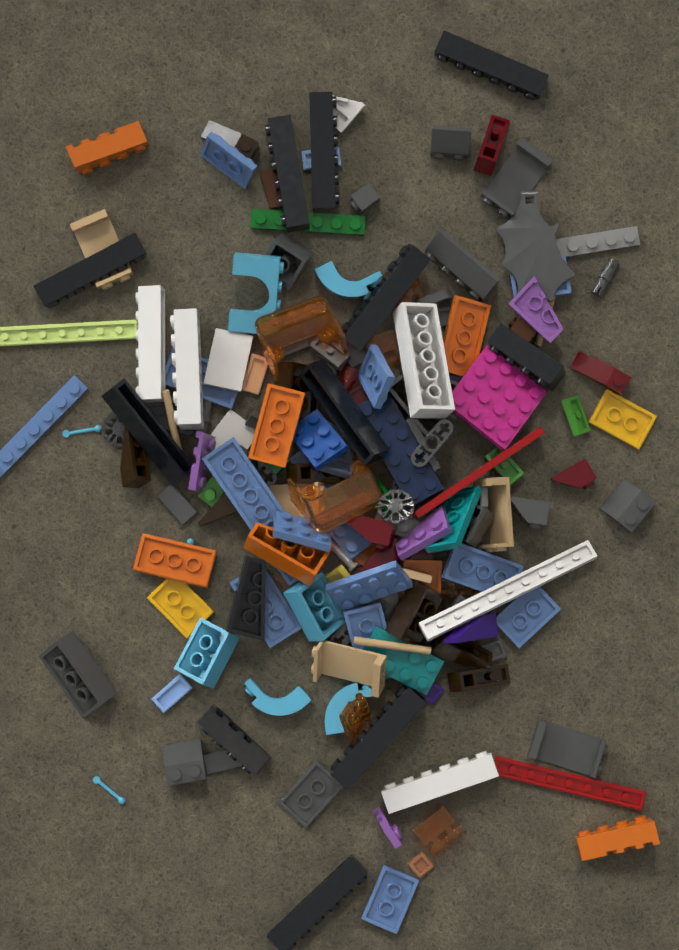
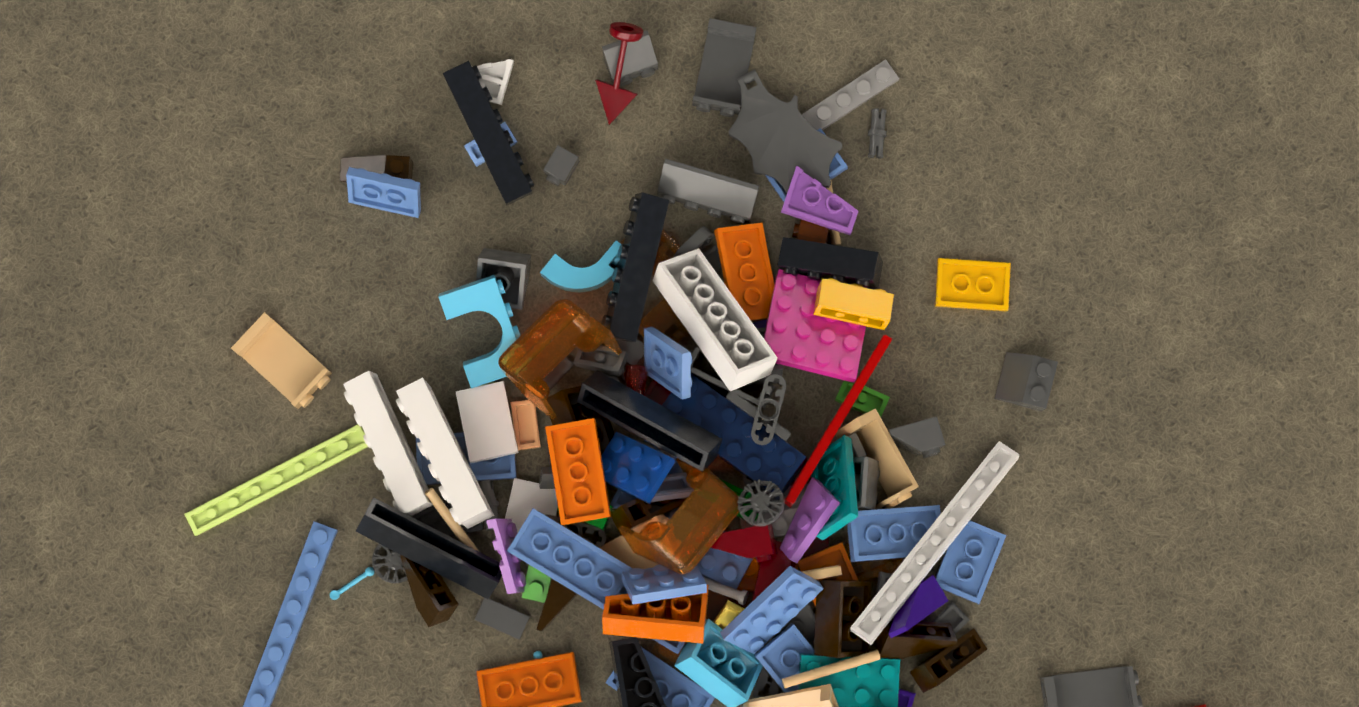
camera: 25 degrees left, 5 degrees down
(90, 269) = (278, 390): black brick -> none
(107, 148) = (237, 241): orange wedge -> none
(270, 189) = (451, 201): reddish brown tile -> none
(288, 173) = (460, 176): black brick -> none
(318, 222) = (507, 223): green plate -> none
(425, 164) = (612, 96): none -> dark red piece
(491, 145) = (678, 43): dark red slope -> none
(528, 394) = (853, 304): none -> yellow brick
(576, 415) = (918, 304): bright green plate -> none
(576, 476) = (951, 373): dark red slope -> none
(601, 373) = (923, 242): dark red slope -> none

